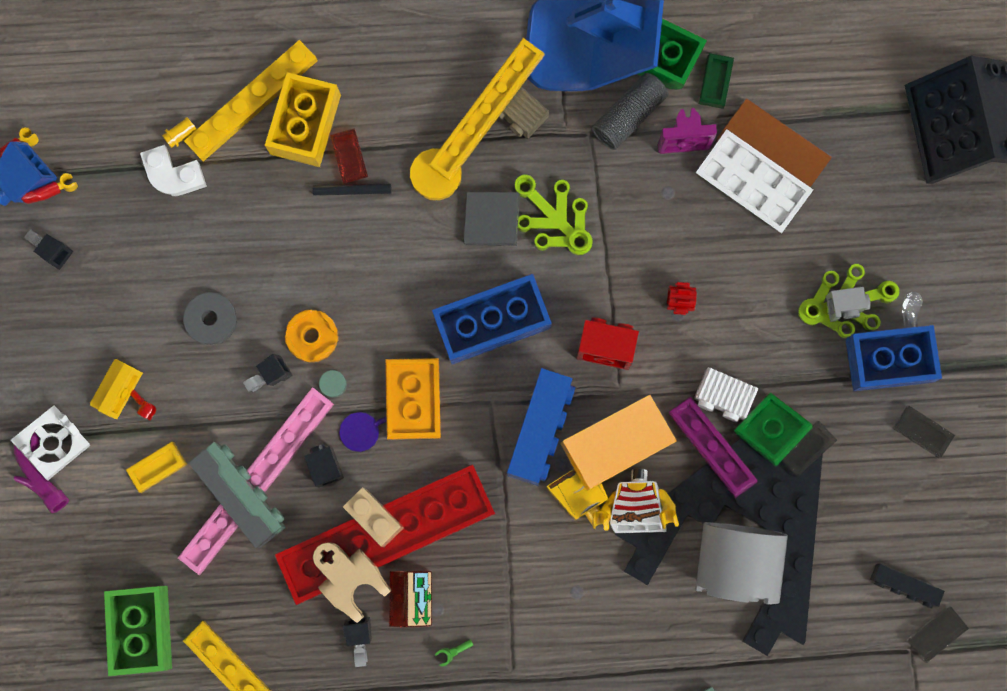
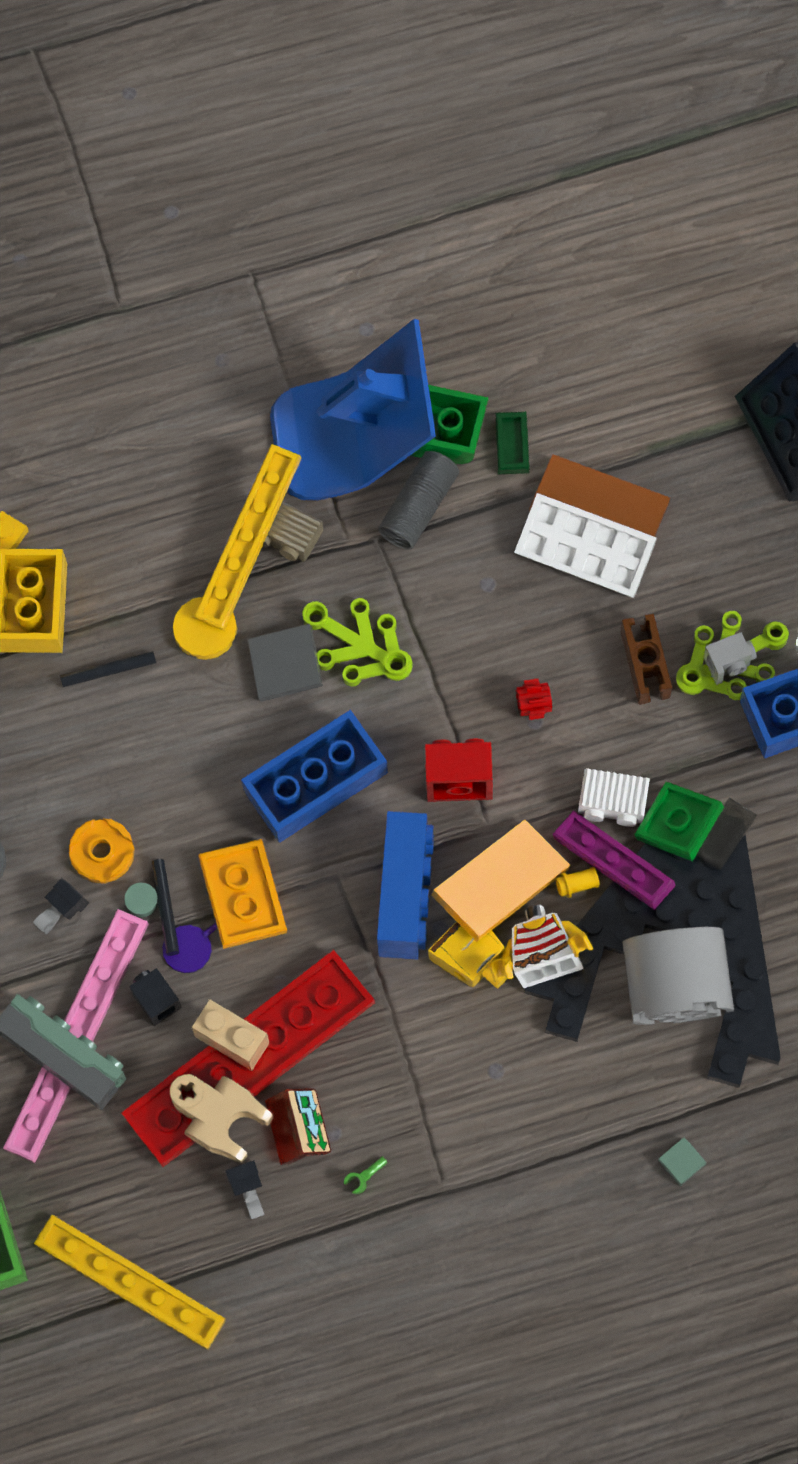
camera: 15 degrees left, 10 degrees down
(349, 156) = (94, 631): clear red tile -> none
(350, 392) = (165, 907): none -> black bar
(678, 456) = (577, 882): none -> yellow pin
(687, 134) = (489, 511): magenta piece -> none
(787, 279) = (646, 647): none -> reddish brown piece

